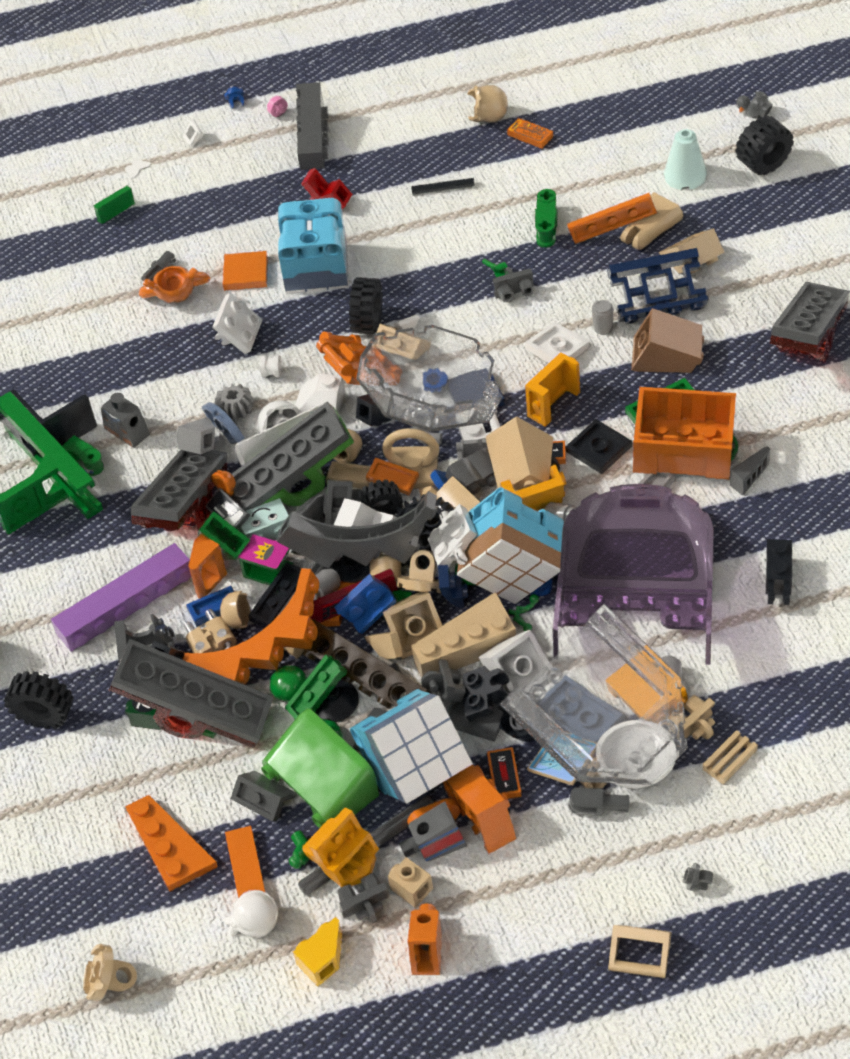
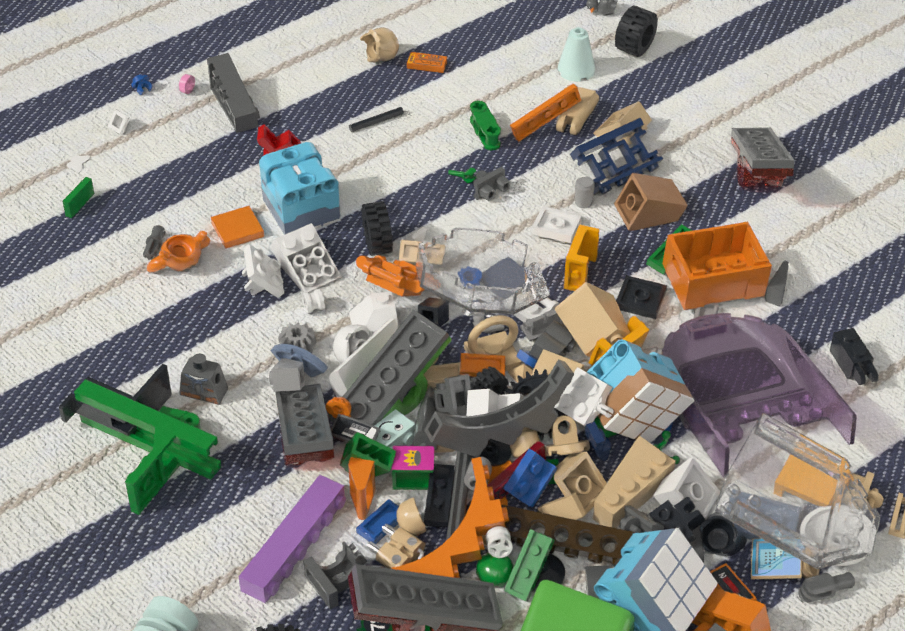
camera: 30 degrees left, 5 degrees down
(287, 320) = (305, 259): none -> white slope
(295, 658) = (503, 546): none -> white wheel

